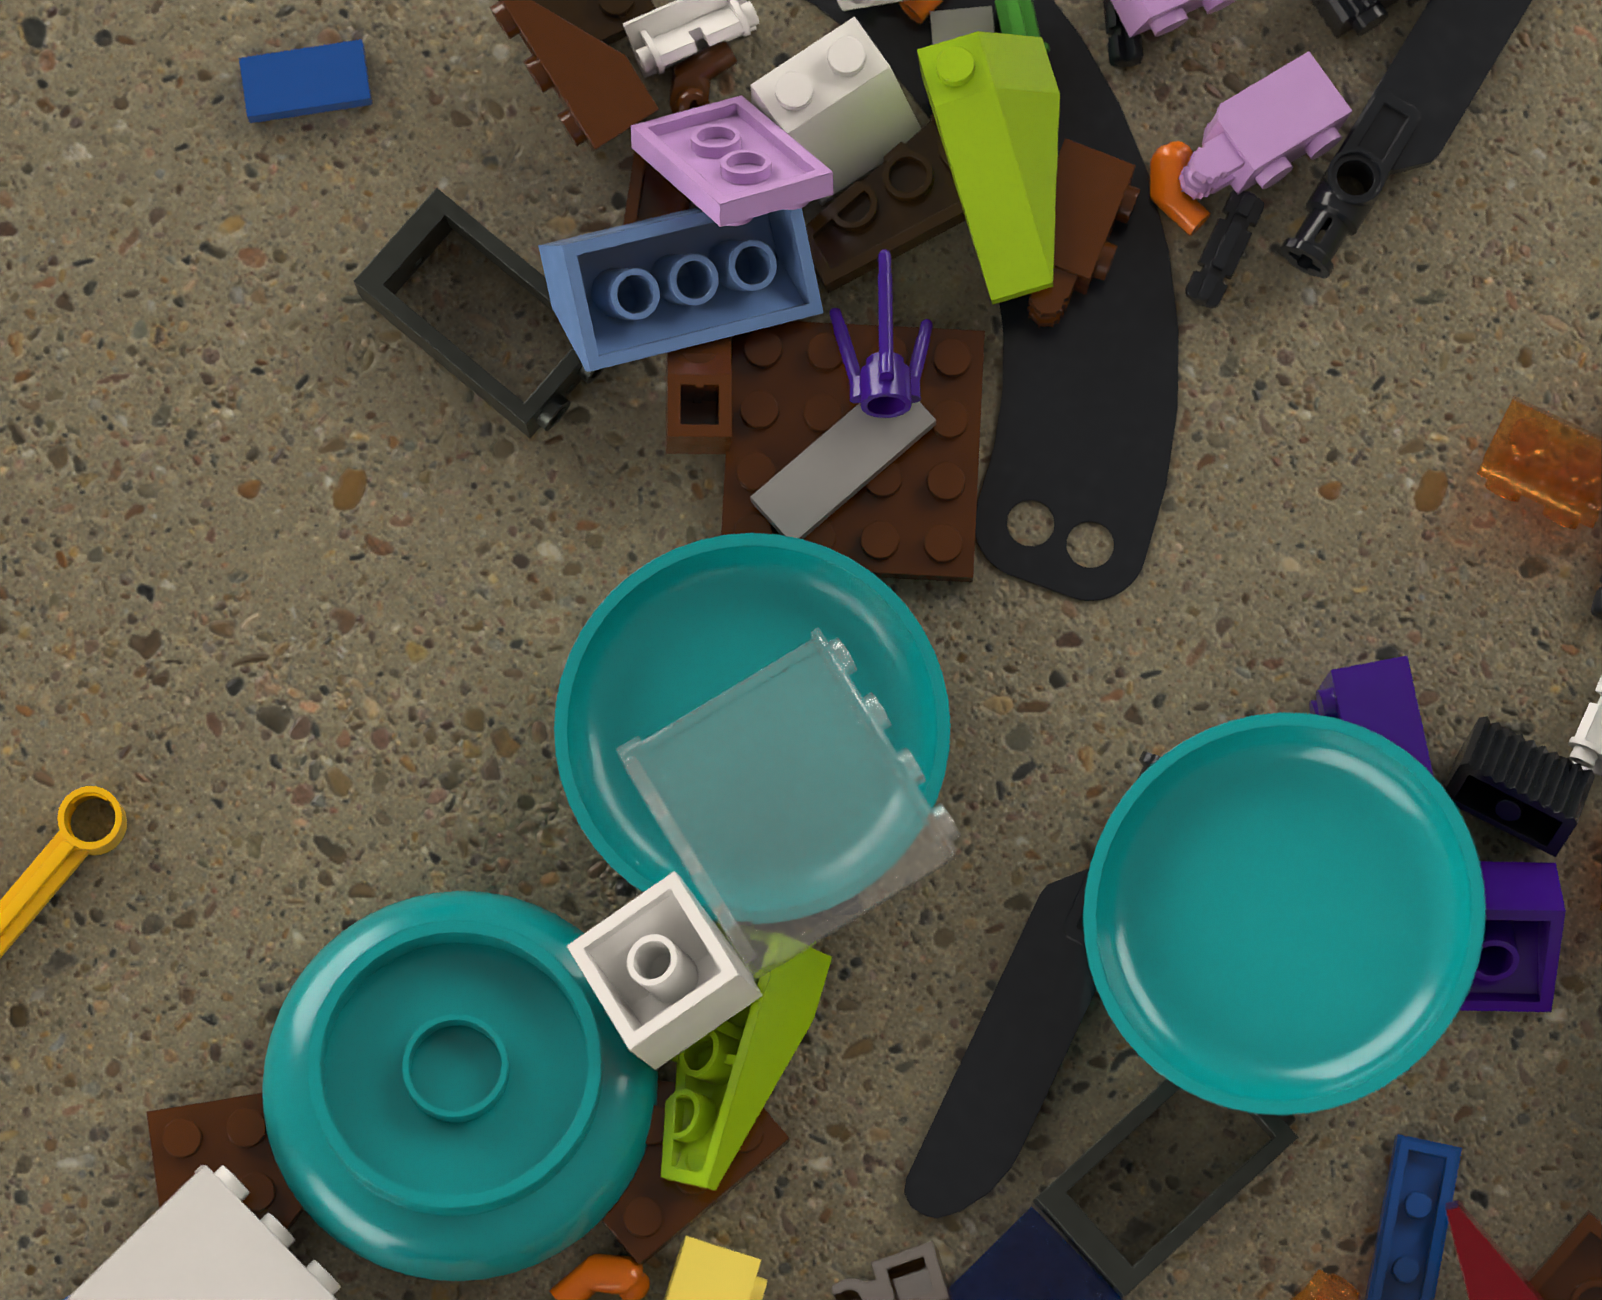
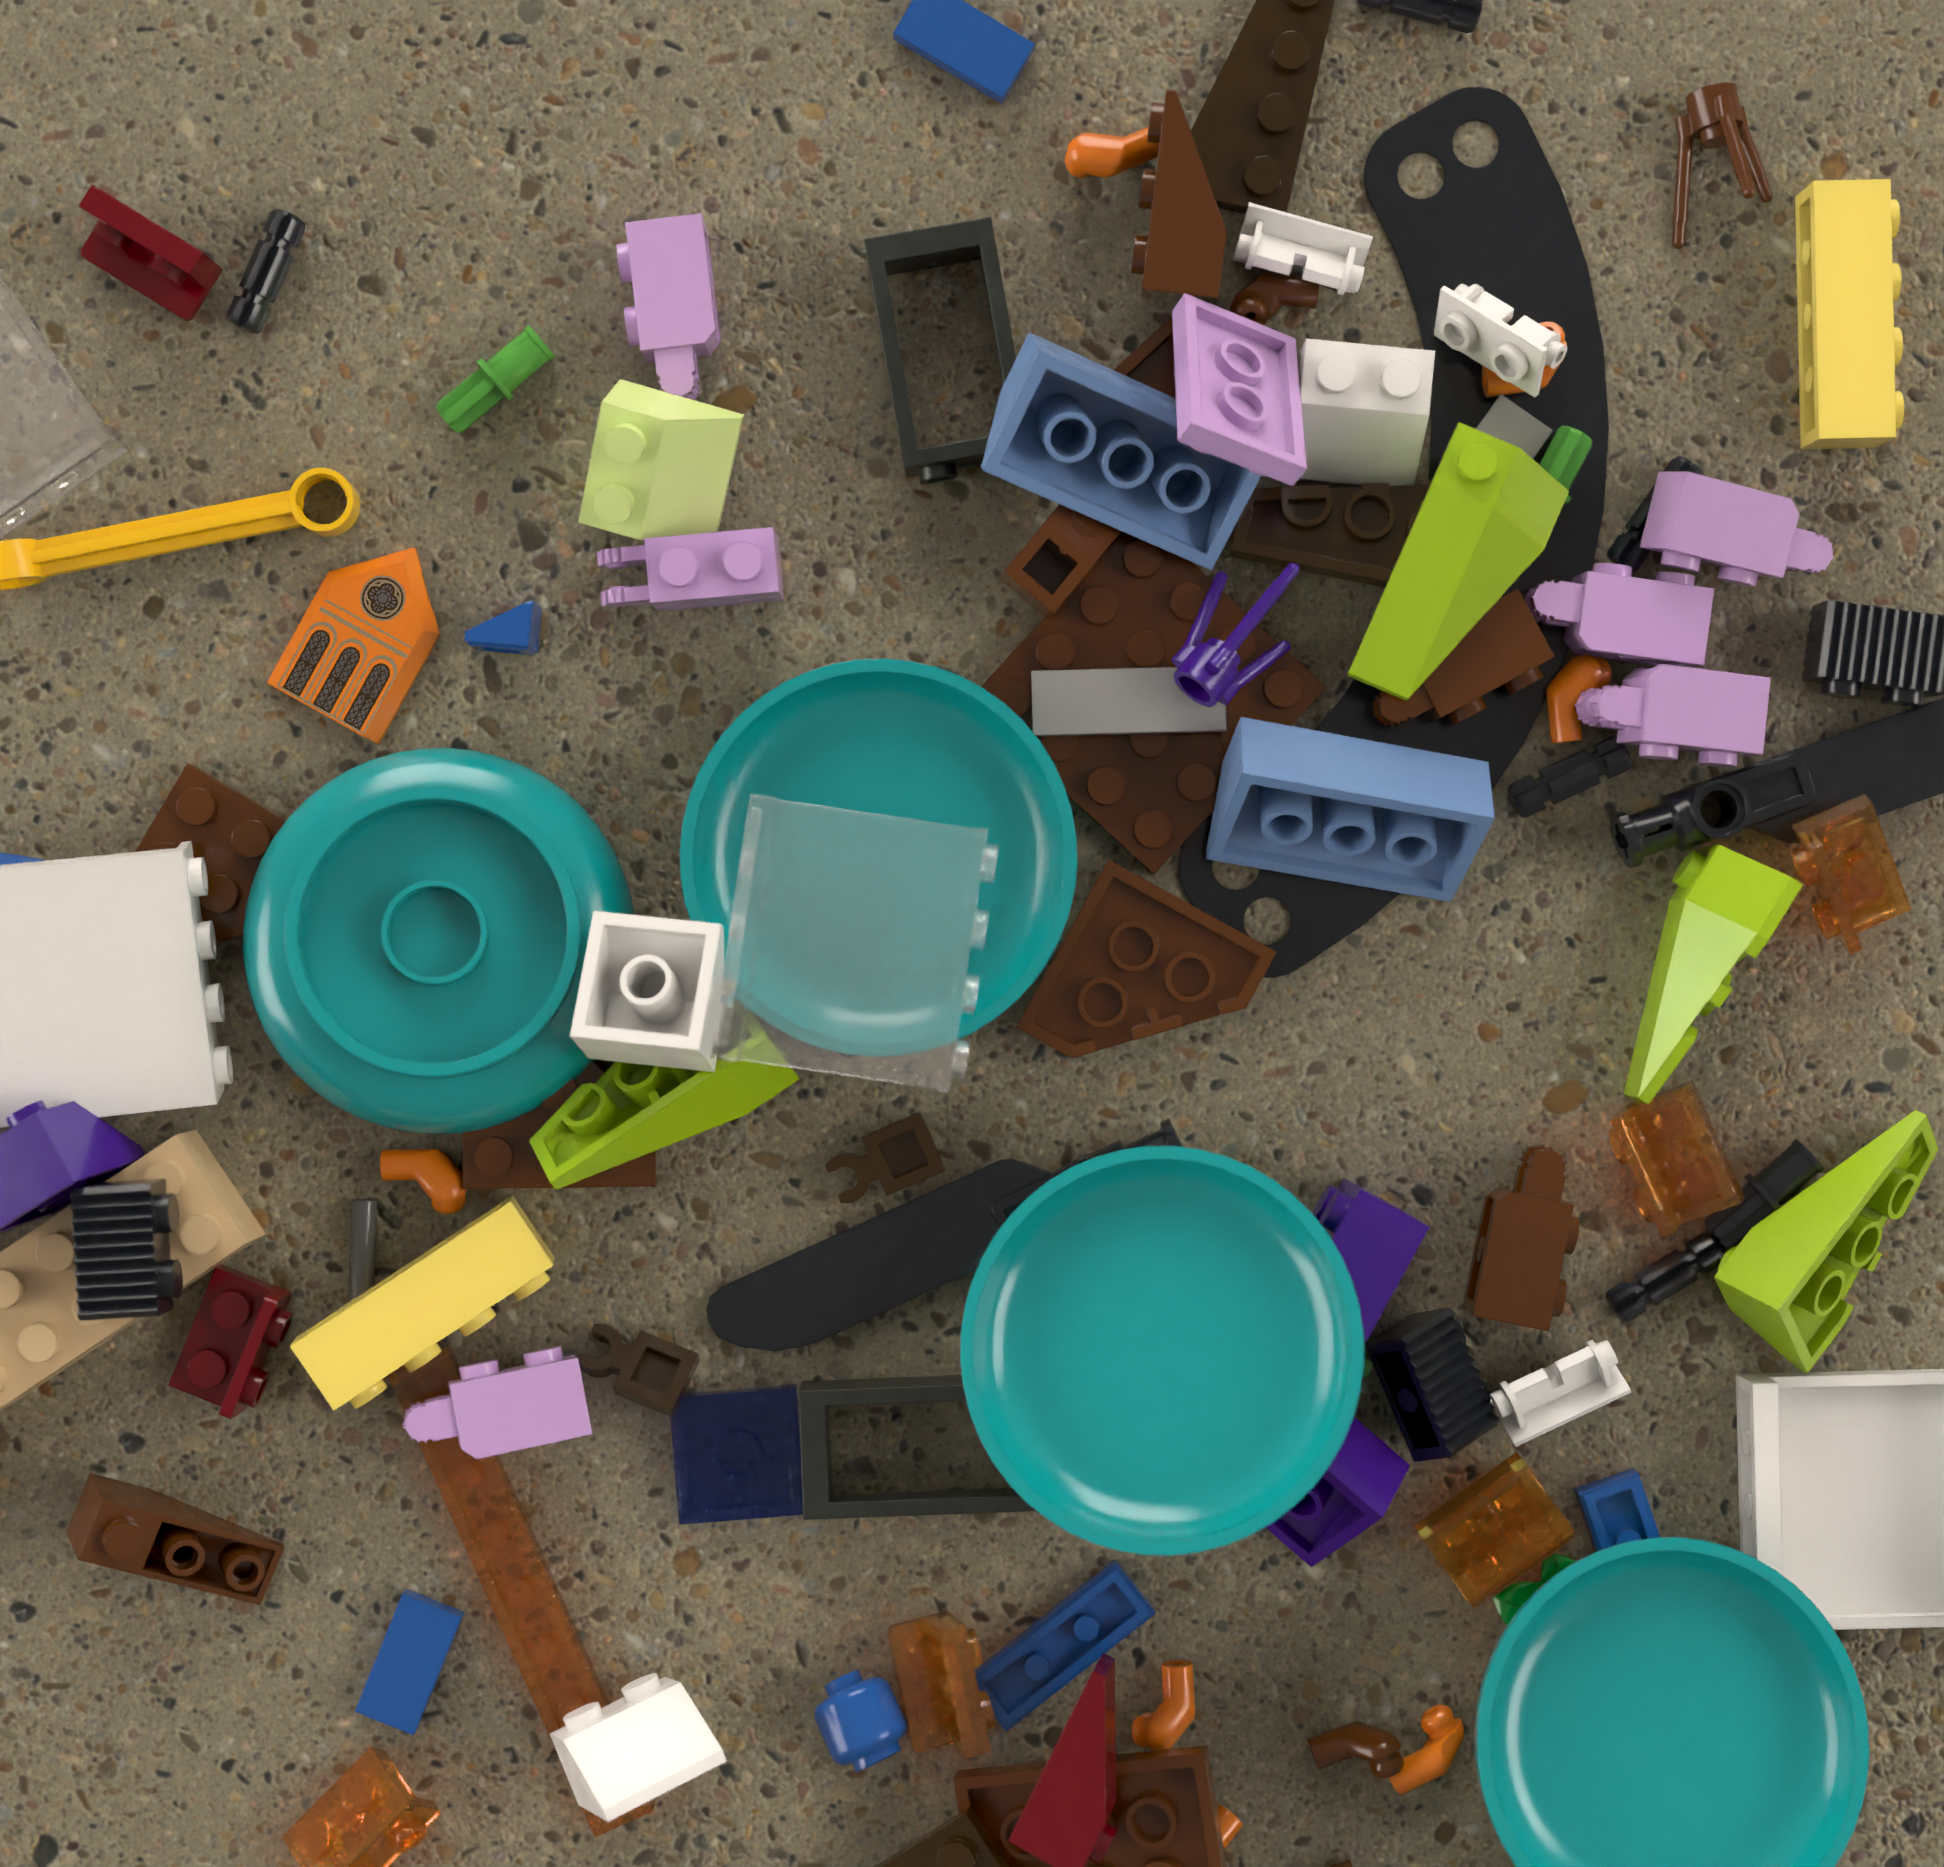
camera: 40 degrees right, 10 degrees up
(150, 619) = (494, 380): none -> bright green axle
(208, 908) = (361, 643): none -> orange tile
(241, 445) = (672, 297): none -> lavender hinge
(319, 802) = (510, 632): none -> blue slope
(336, 574) = (659, 464): none -> yellowish green slope
(430, 631) = (699, 570): none -> lavender hinge
(486, 74) = (1108, 154): none -> orange arm
(958, 958) = (896, 1155): none -> dark brown plate
(1022, 656) = (1140, 968): none -> reddish brown plate
(1080, 405) = (1349, 810): none -> medium blue slope
(1165, 94) = (1628, 616): none -> lavender hinge
(1423, 263) = (1712, 921): none -> lime wedge
(1492, 142) = (1851, 870): none -> clear orange bracket
(1495, 625) = (1523, 1245): none -> reddish brown hinge
(1543, 1212) = (1174, 1714): none -> orange arm

